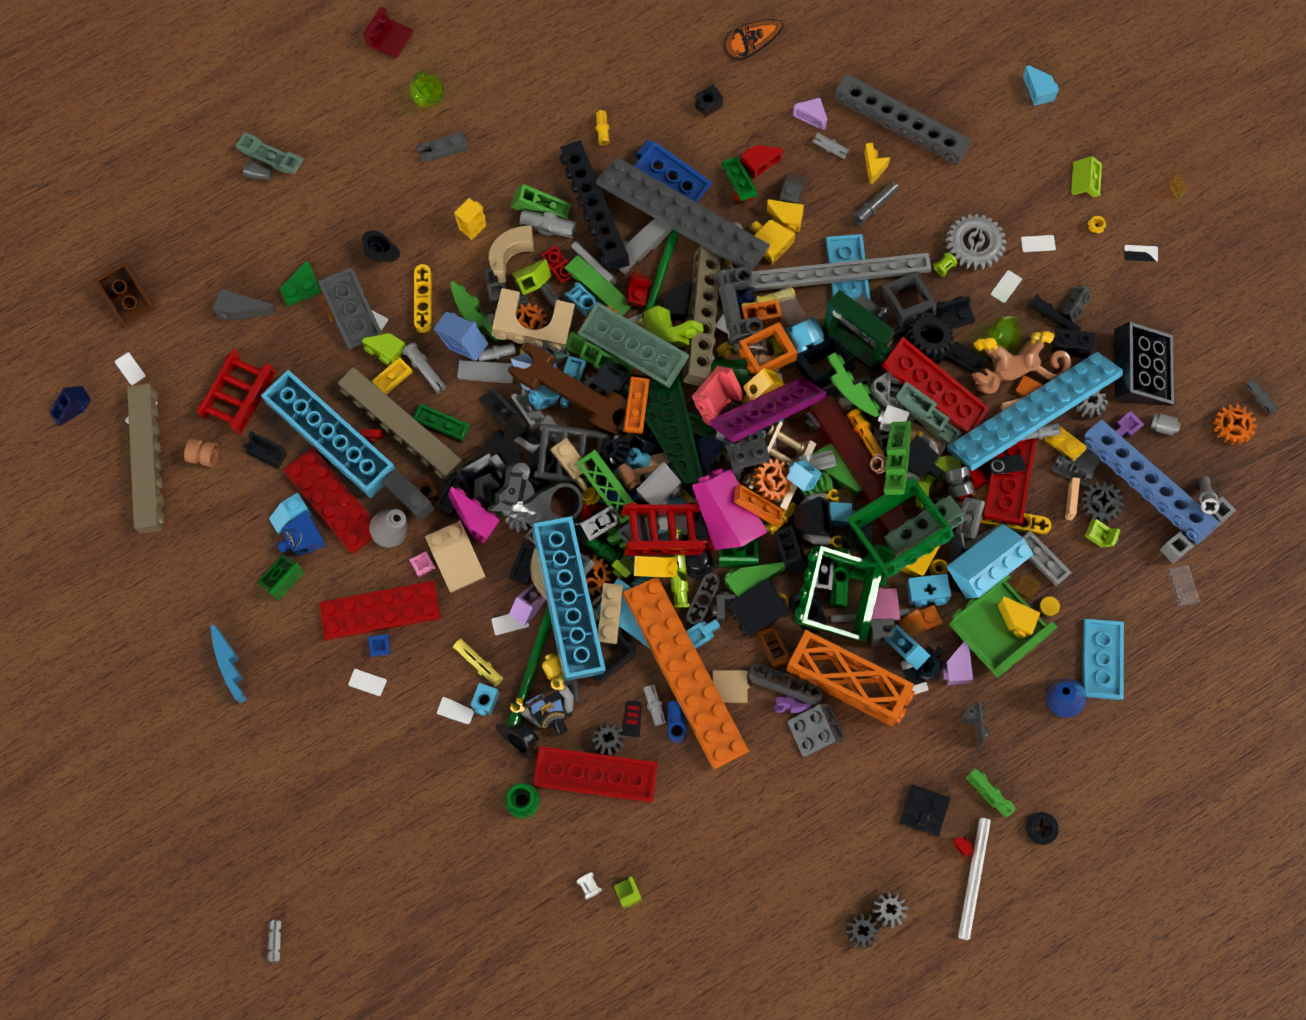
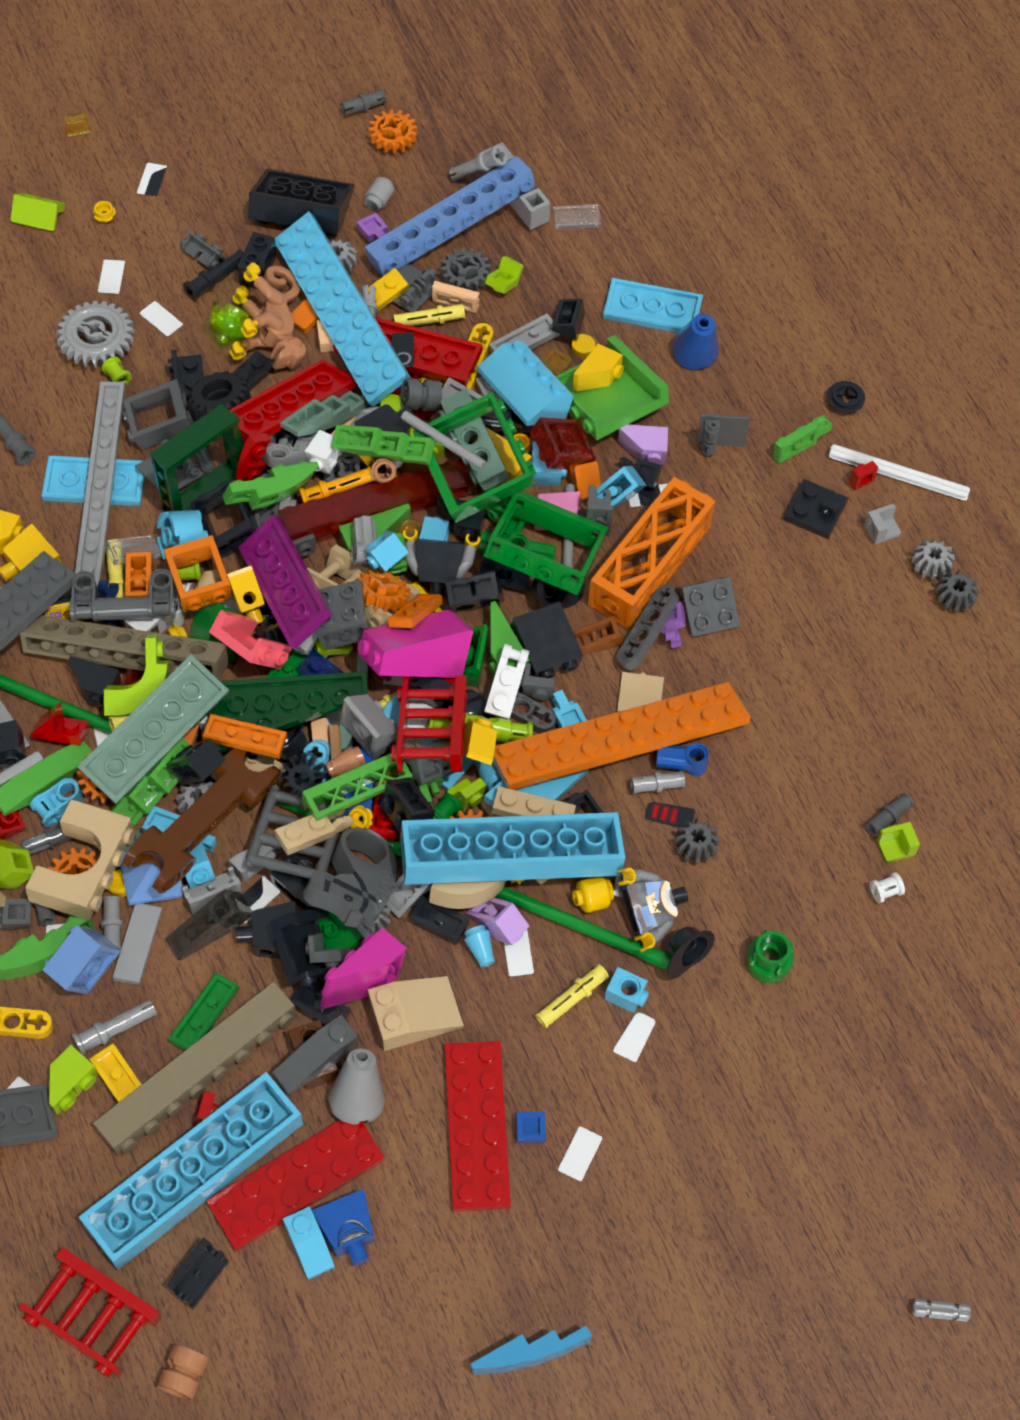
camera: 90 degrees left, 10 degrees down
(280, 577) = (404, 1264): green slope -> none
(422, 564) = (416, 1060): bright pink tile -> none
(508, 594) = (480, 945): none -> medium azure cone
(595, 774) = (742, 864): red plate -> none
(652, 885) = (889, 814): none -> dark grey pin
(715, 582) = (506, 683): none -> white plate
(870, 368) = (250, 462): none -> red slope
(906, 499) = (443, 440): none -> light grey bar
(917, 867) = (881, 524): none -> light grey panel
(935, 595) = (561, 442): none -> clear red plate
(1053, 489) = (457, 312): none -> light yellow pin
(1071, 591) = (569, 318): none -> black slope

